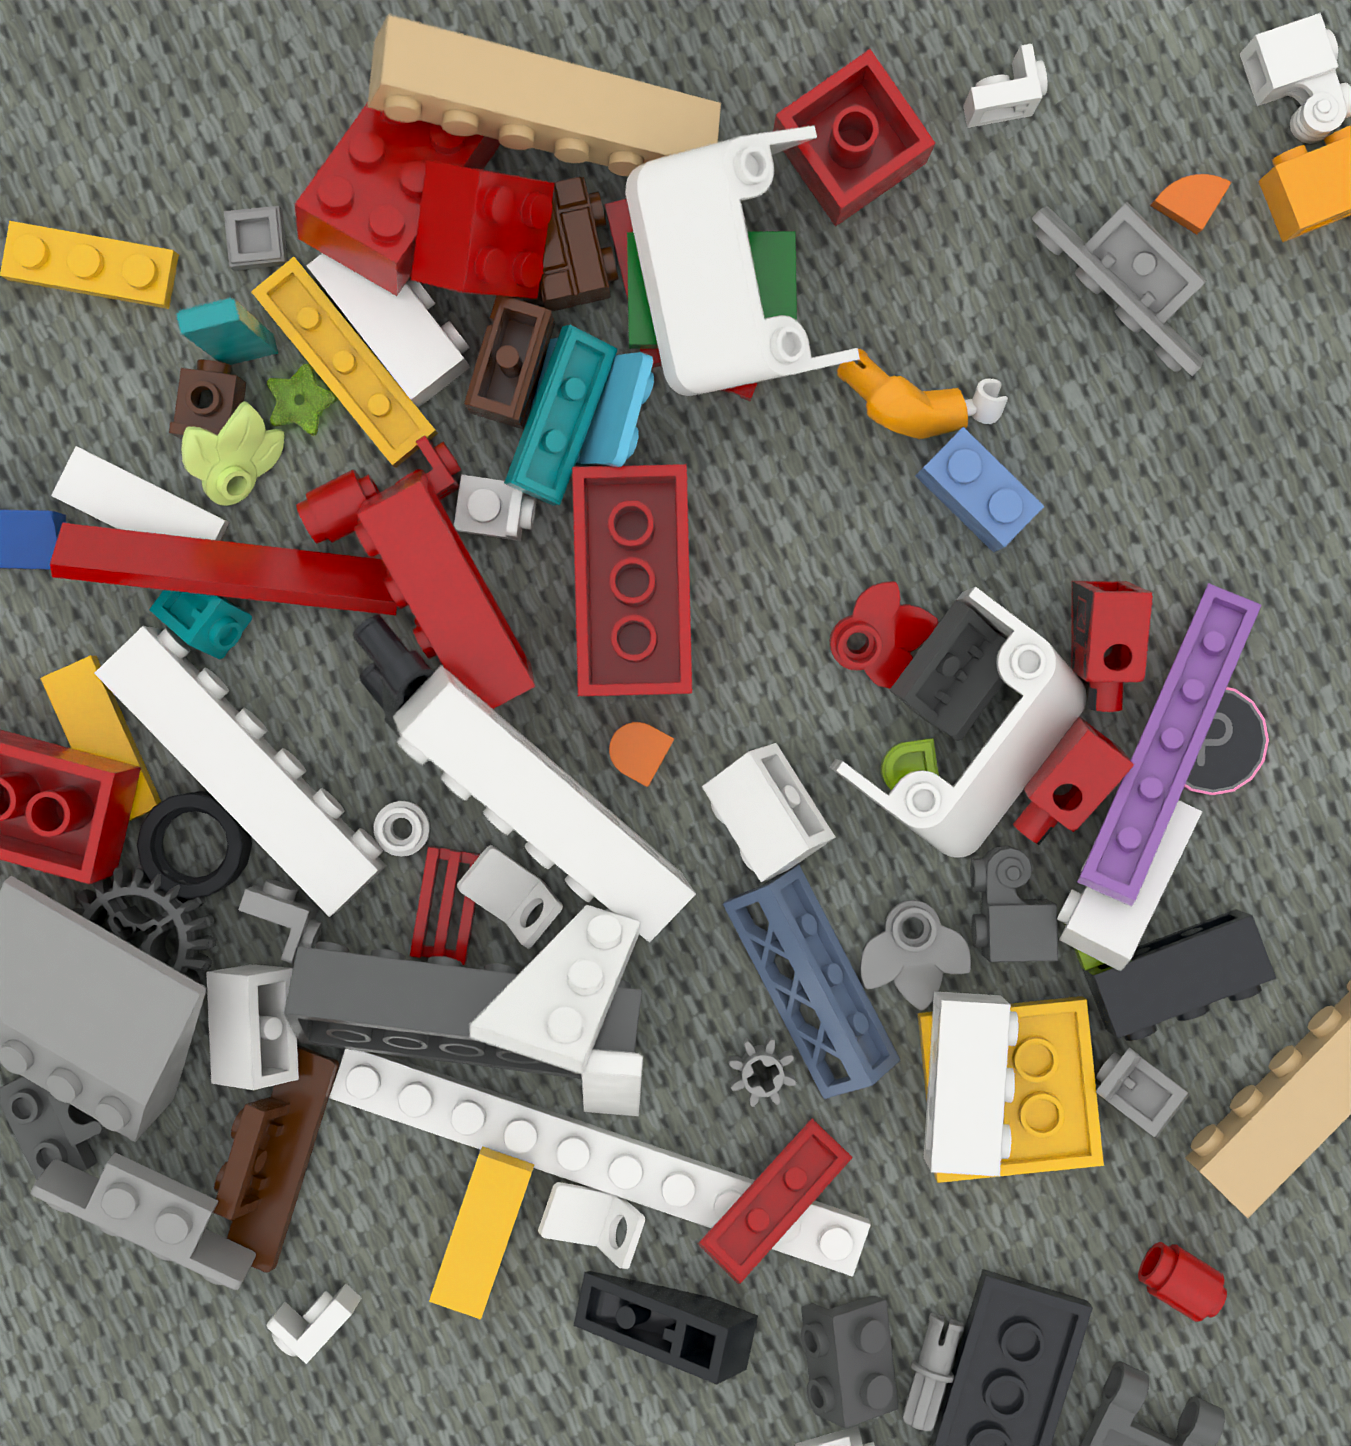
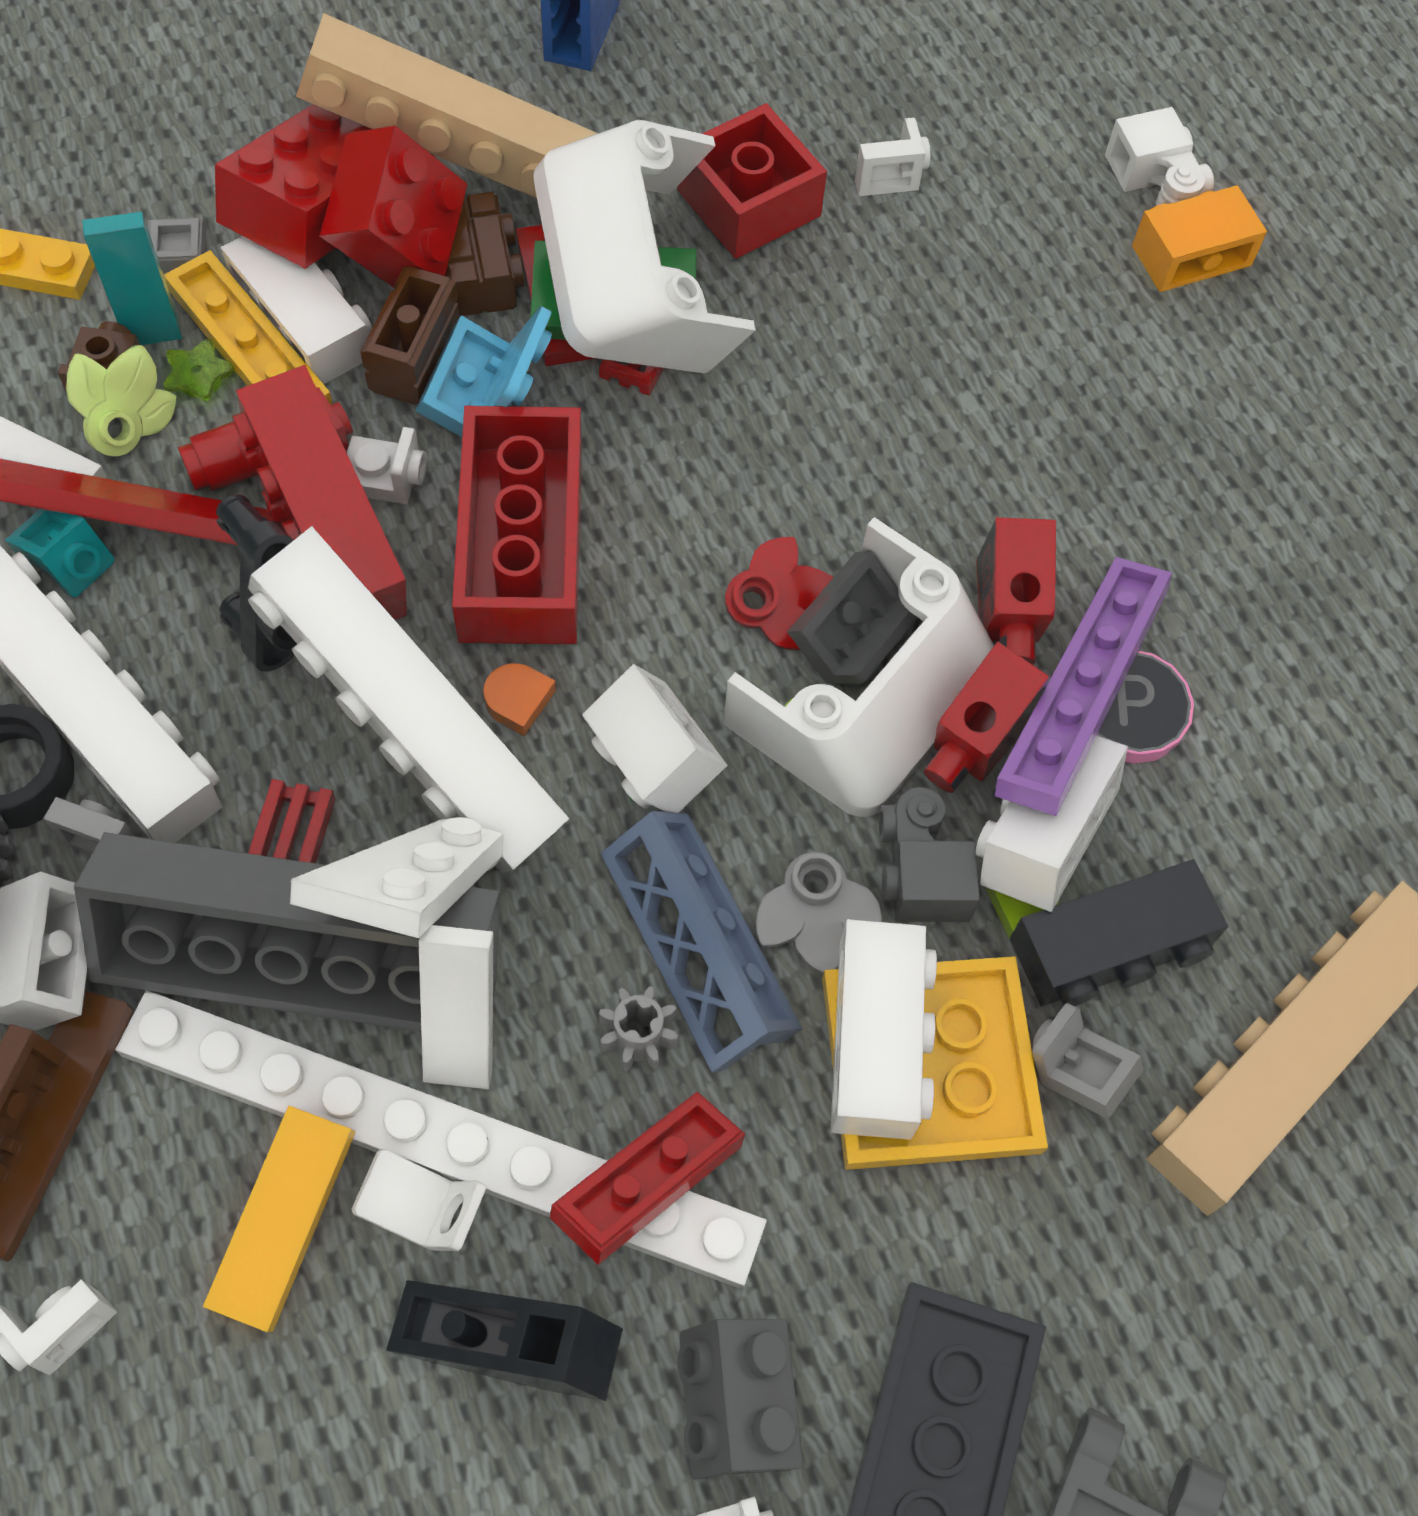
camera: 10 degrees left, 25 degrees down
(384, 828) = (242, 746): white plate -> none
(510, 894) = (350, 817): white bracket -> none
(561, 415) = (456, 376): teal tile -> none
(918, 413) = (806, 396): light orange arm -> none
(932, 1373) = (845, 1416): light grey axle -> none
(979, 490) = (877, 462): medium blue brick -> none
(1136, 271) = (1024, 295): light grey bracket -> none
(1183, 1281) = (1157, 1298): red brick -> none
(1192, 200) = (1069, 252): orange tile -> none

